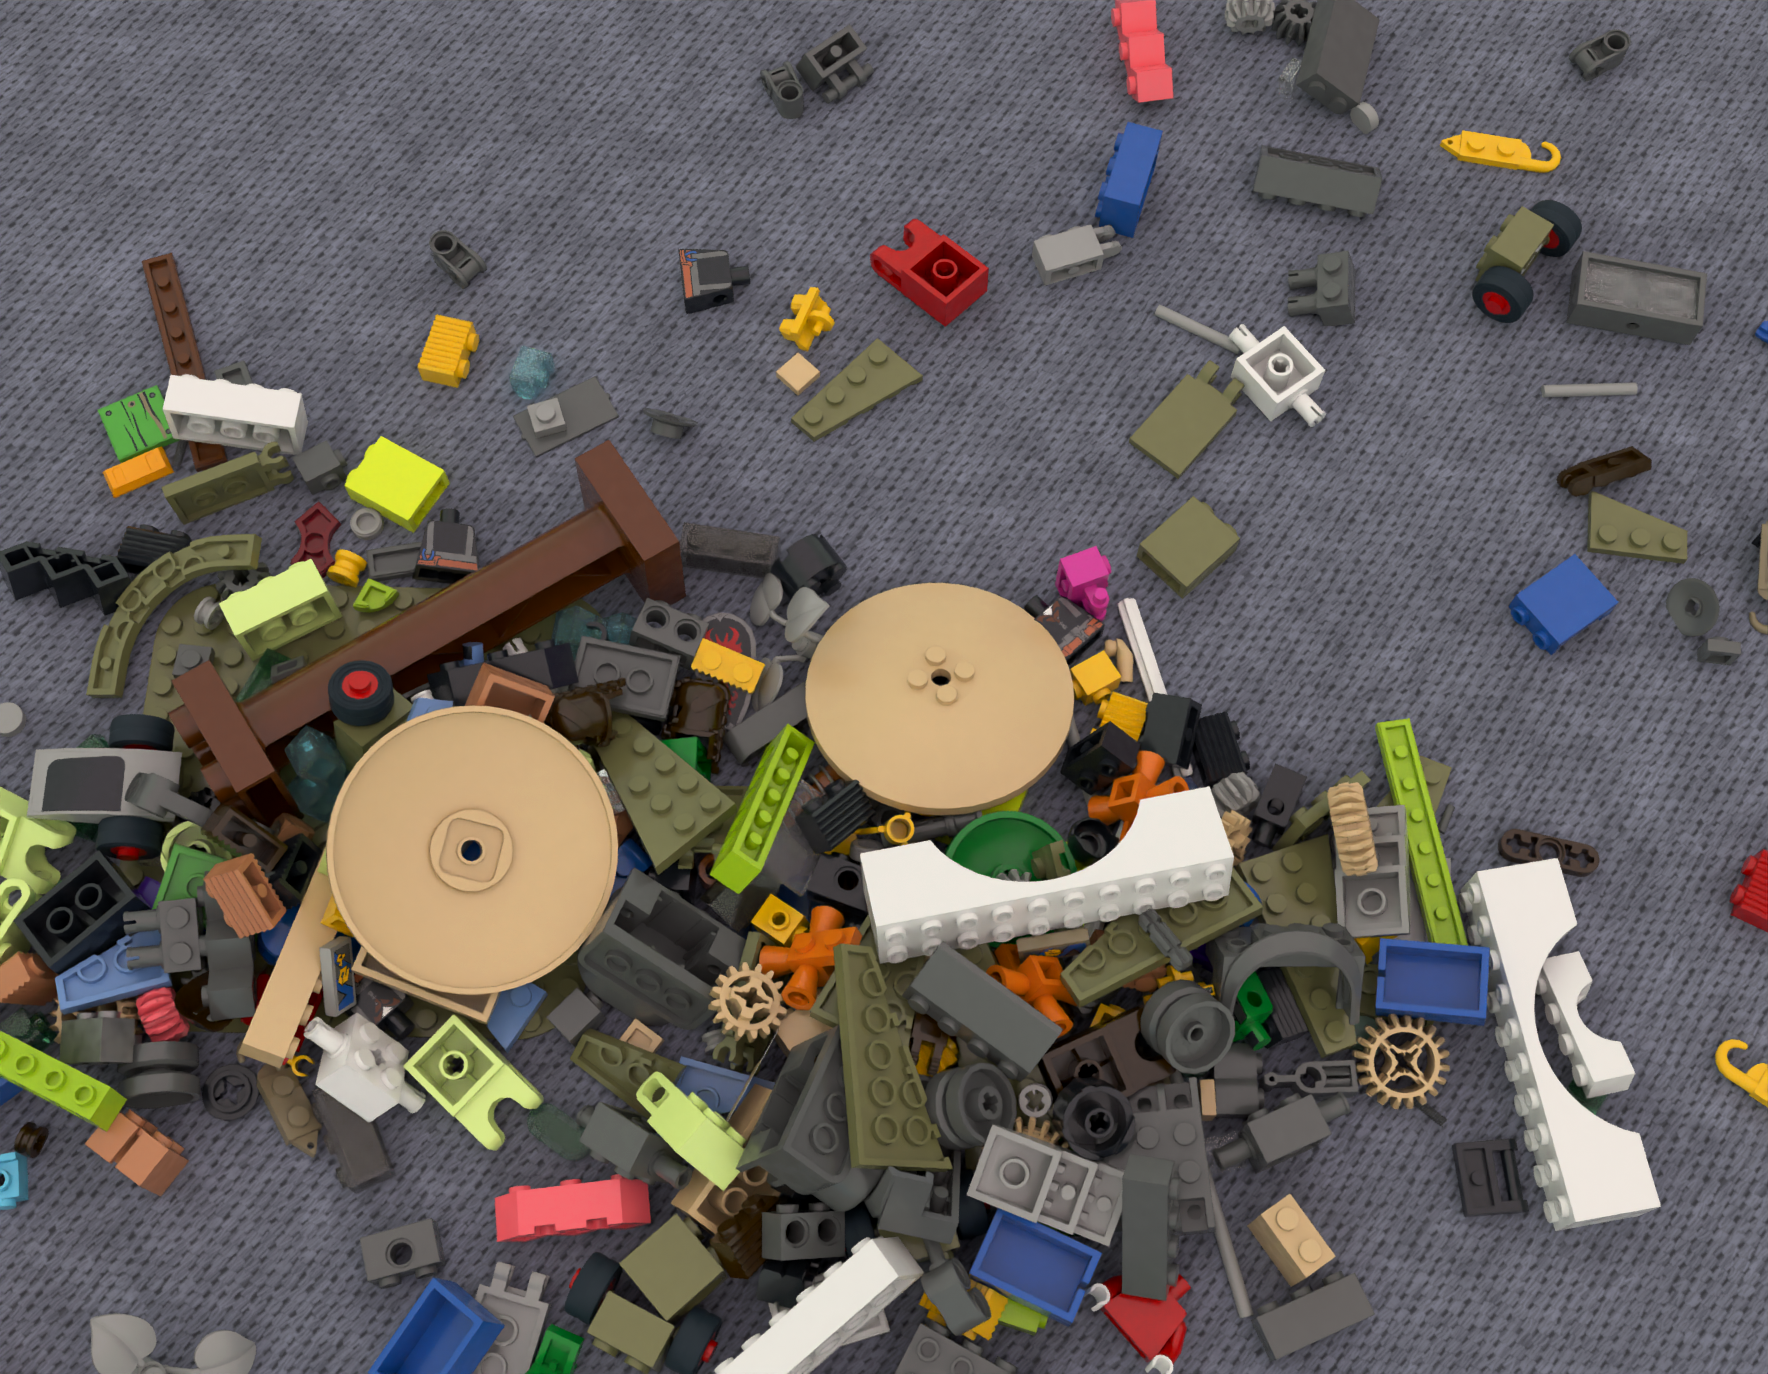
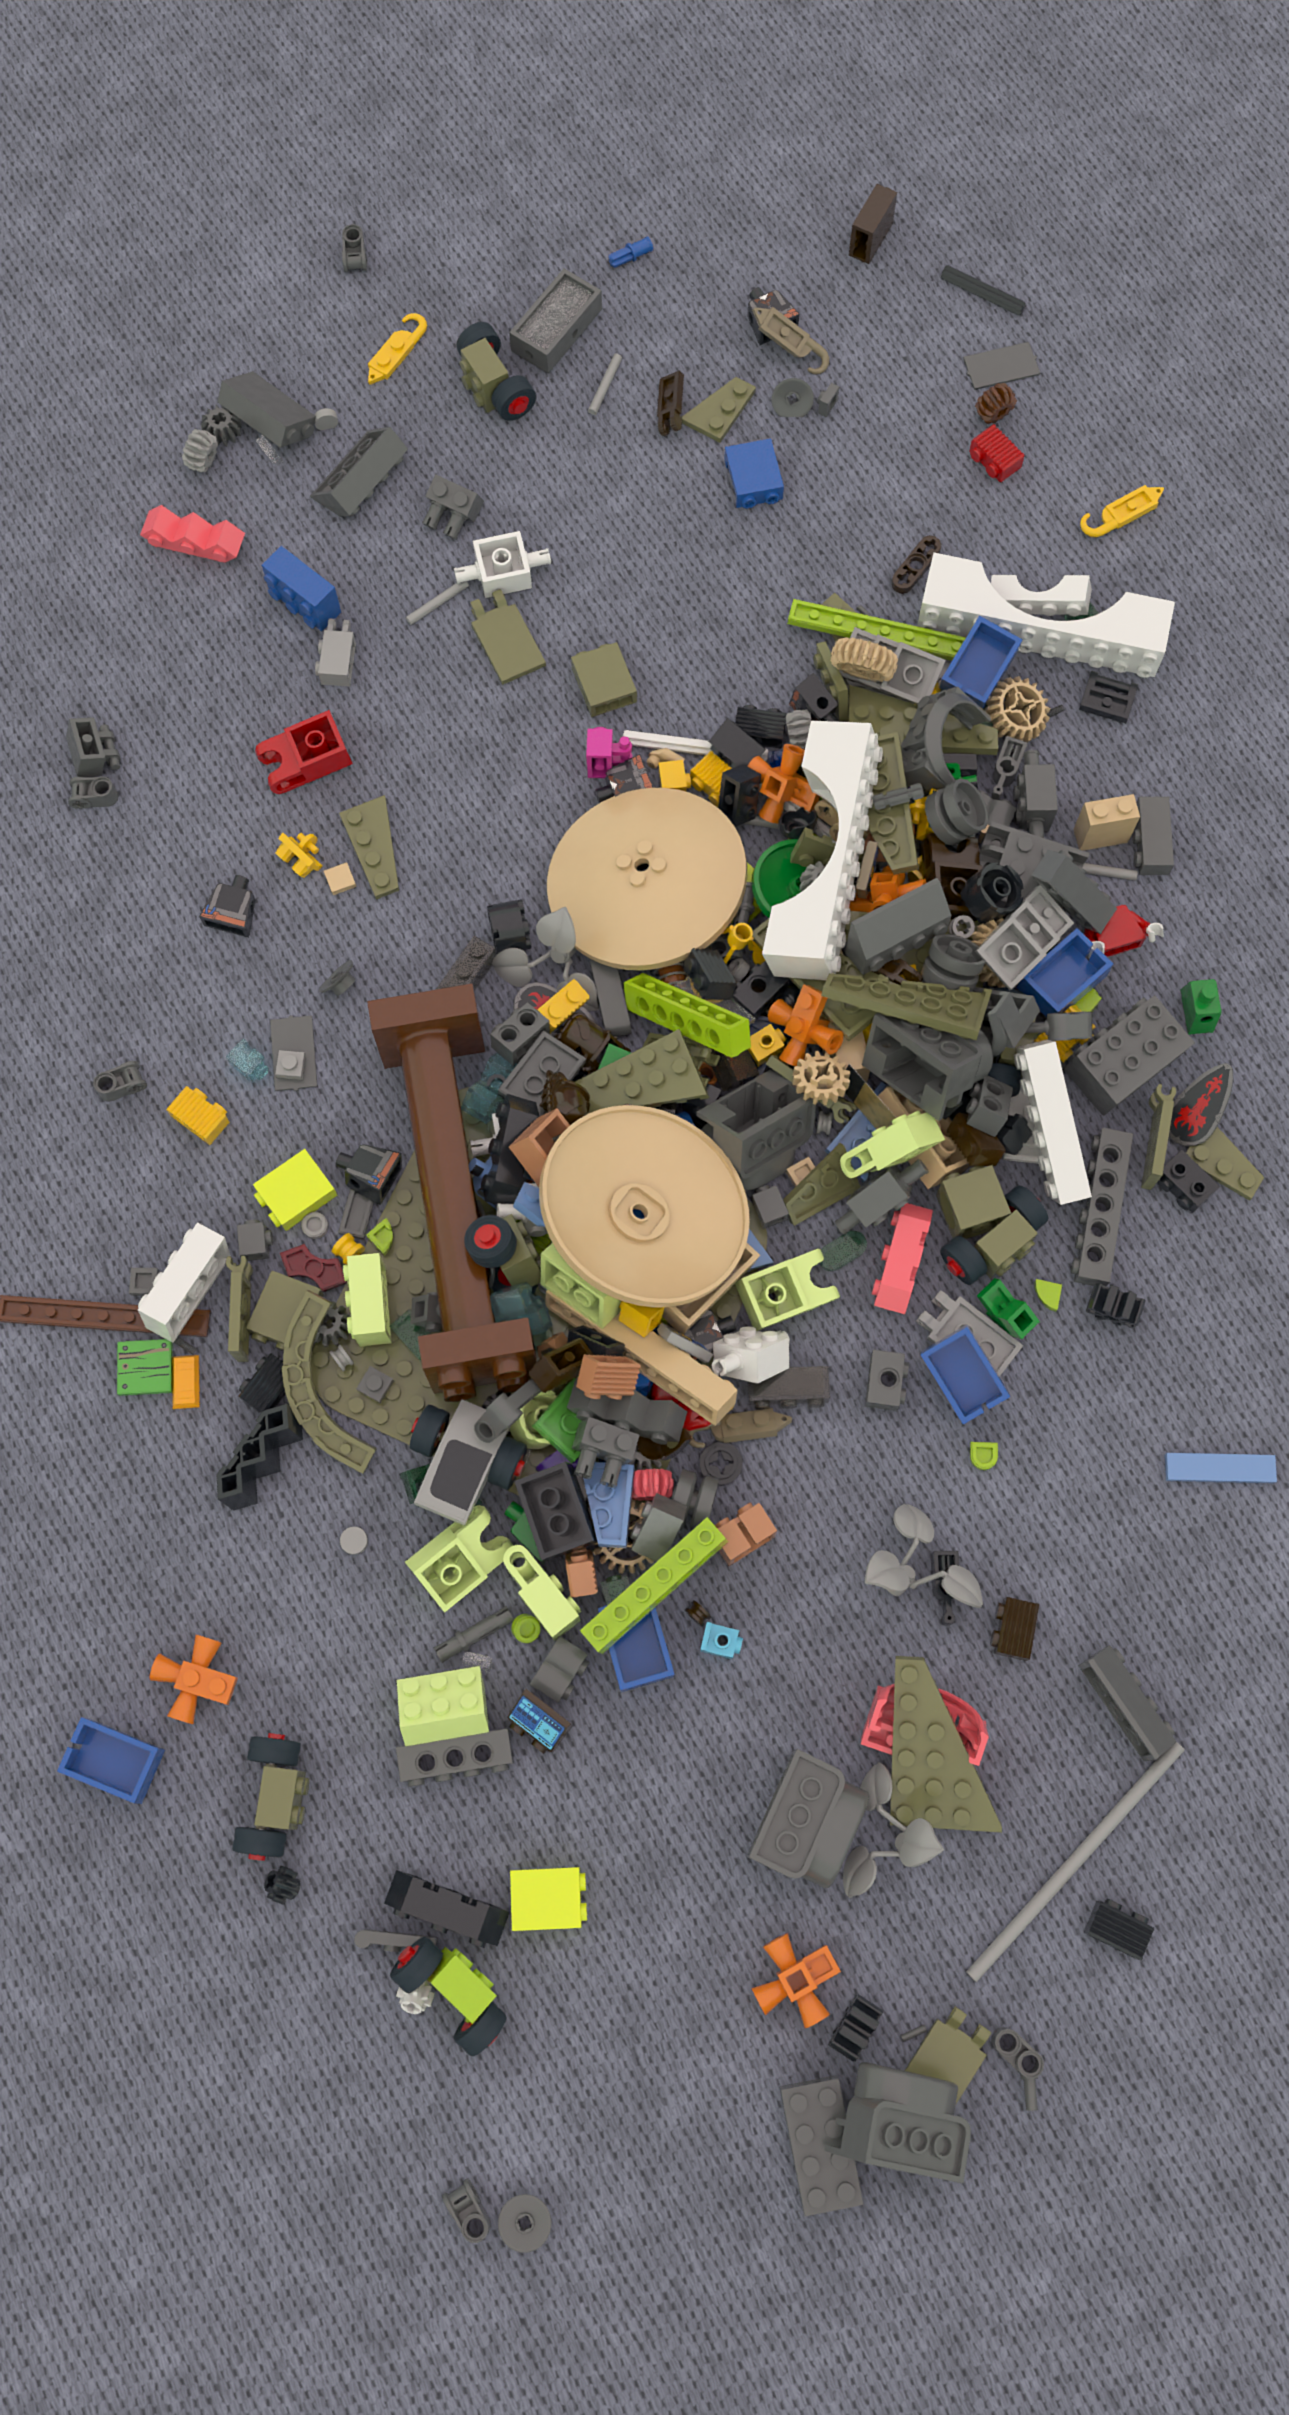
camera: 65 degrees left, 5 degrees up
(260, 516) = (276, 1308): none -> olive brick

